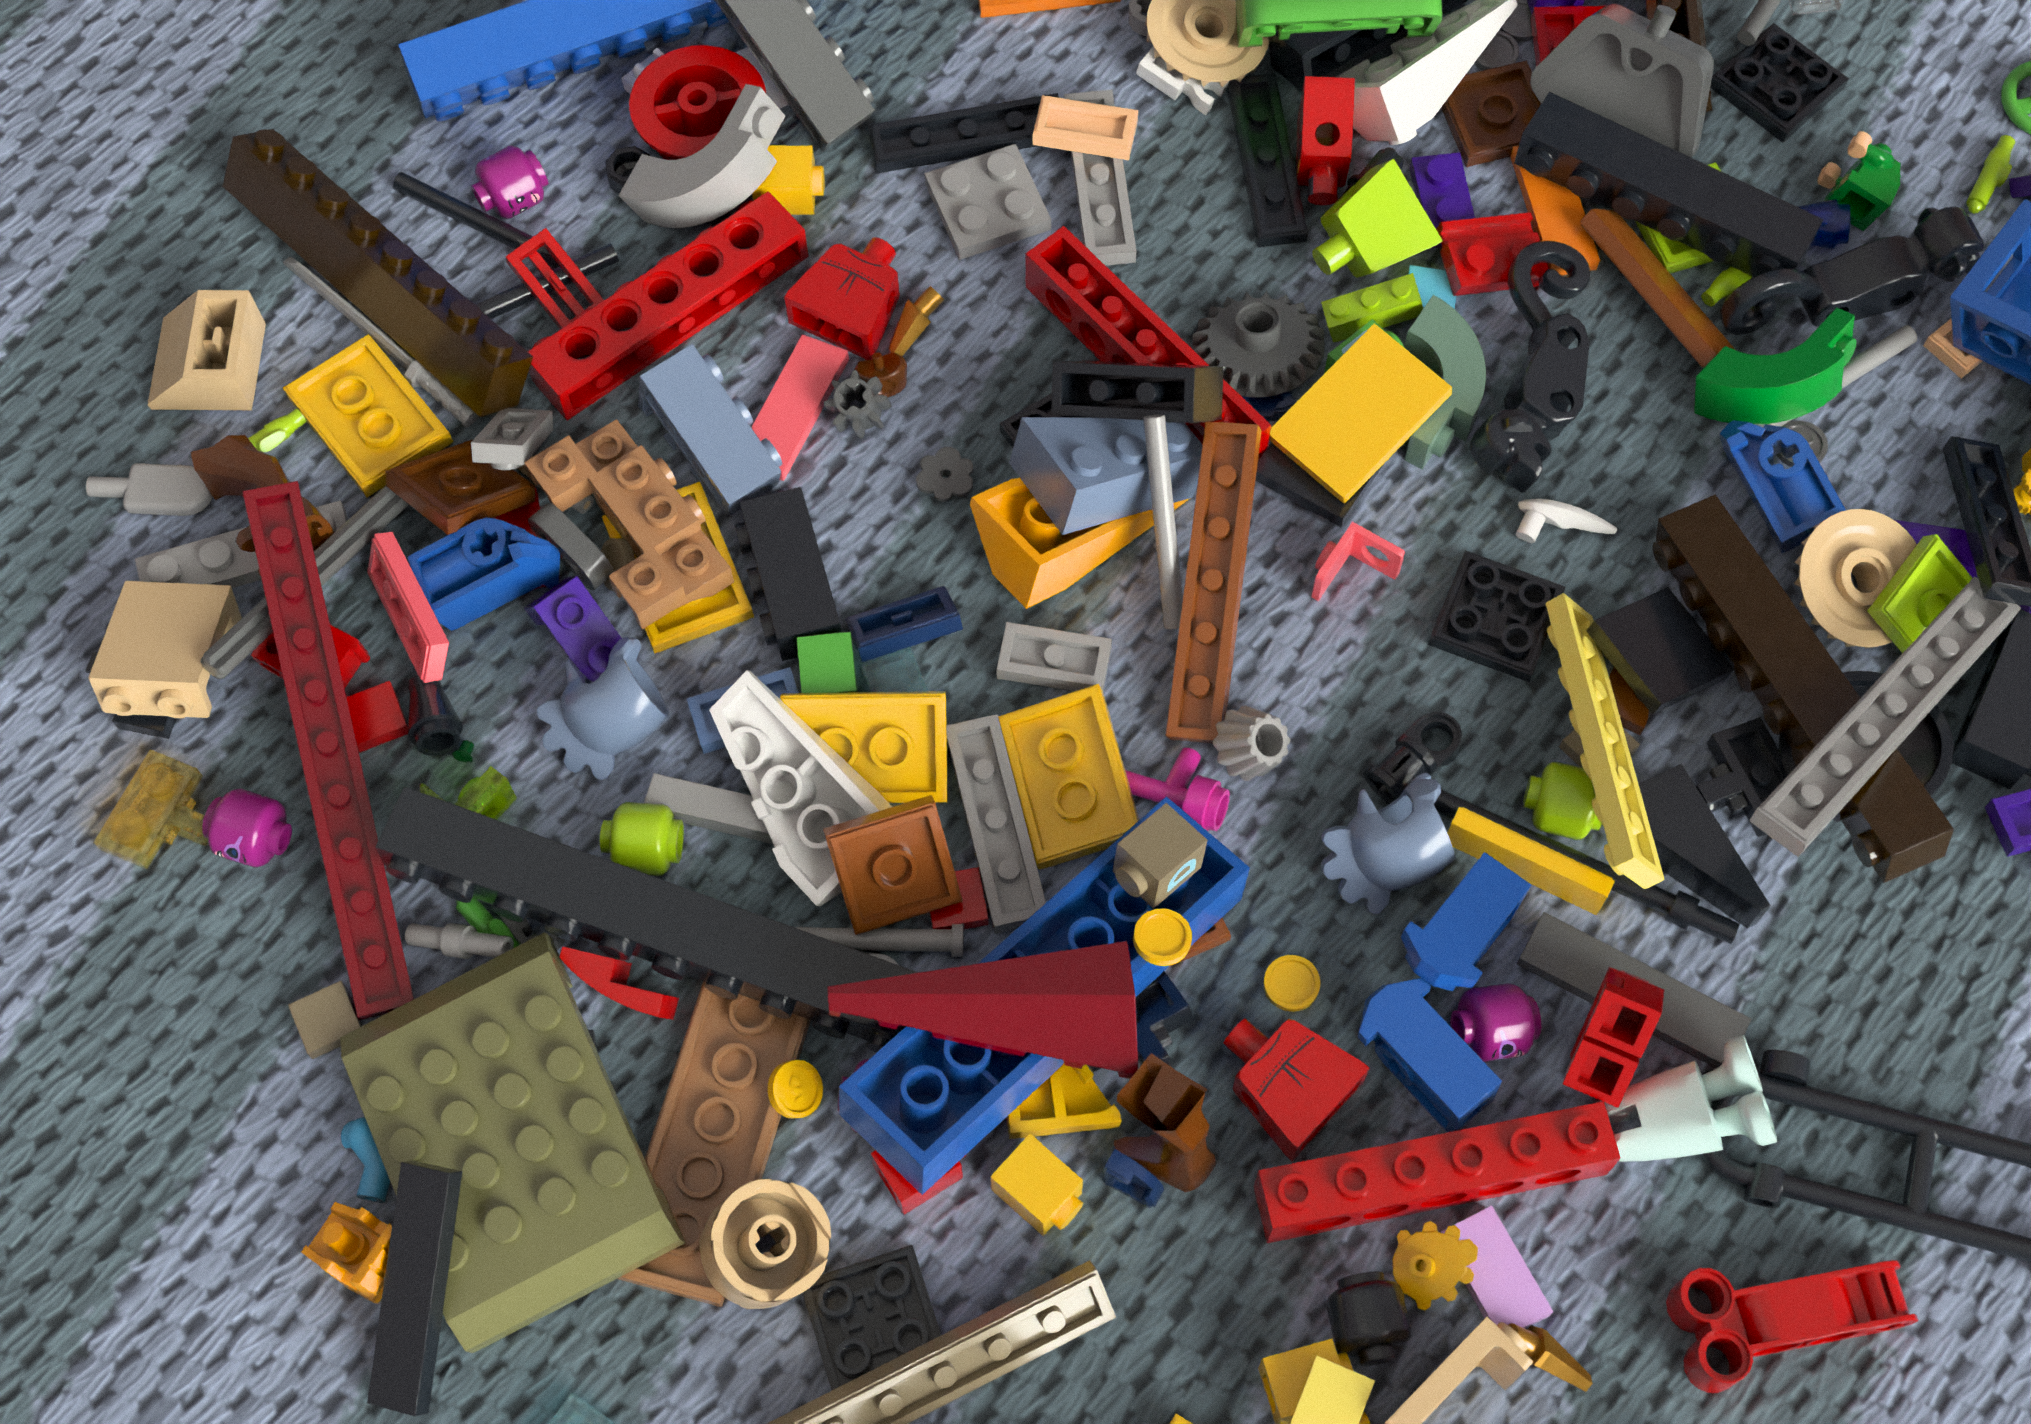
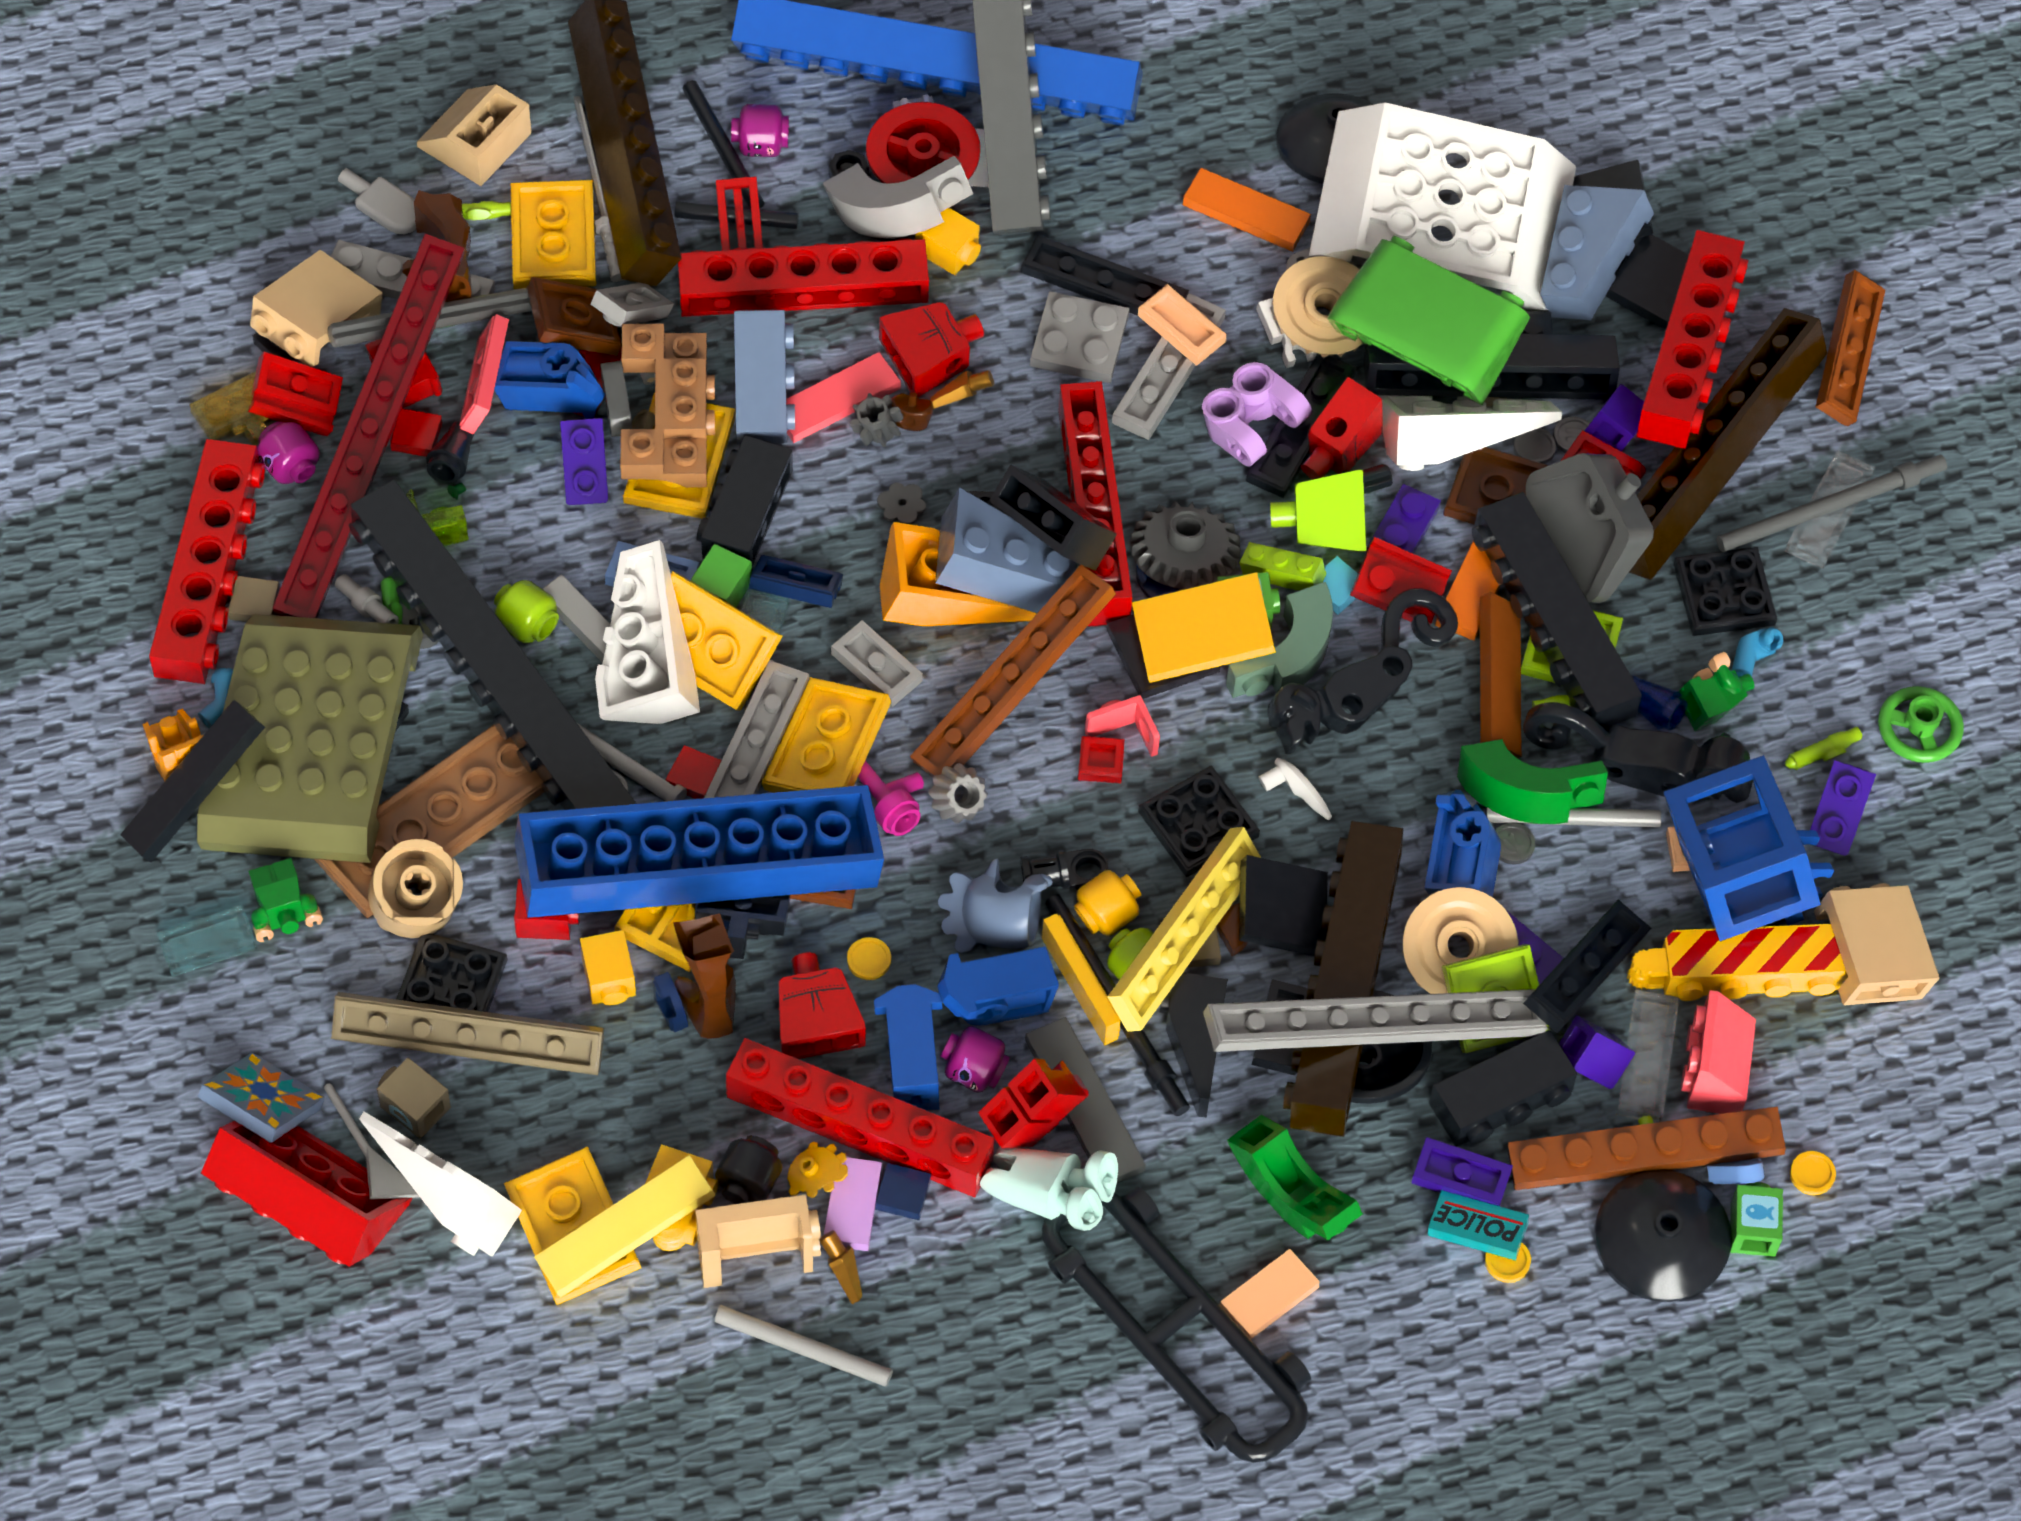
camera: 30 degrees right, 5 degrees down
(181, 893) = (221, 467): none -> red brick
(209, 757) = (295, 393): none -> red plate
(605, 715) = (559, 516): sand blue piece -> none
(610, 979) = (443, 685): red slope -> none
(617, 1359) = (281, 900): none -> green piece
(795, 1089) = (501, 818): yellow piece -> none
(893, 864) = (663, 718): dark orange tile -> none
(1047, 1004) = (678, 845): dark red wedge -> none
(1158, 856) = (824, 810): dark tan brick -> none
(1162, 937) = (790, 860): yellow piece -> none
(1164, 519) = (1012, 603): light grey bar -> none
(1232, 144) = (1254, 396): none -> lavender piece
(1352, 614) = (1101, 759): none -> red tile
(1489, 761) = (1107, 902): none -> yellow head
(1536, 1221) = (903, 1191): none -> dark blue tile
(1783, 1316) = (1011, 1340): red piece -> none
(1853, 113) = (1755, 647): none -> dark azure arm
(1919, 944) = (1289, 1182): none -> green arch
(1979, 1072) = (1270, 1294): none -> light nougat tile

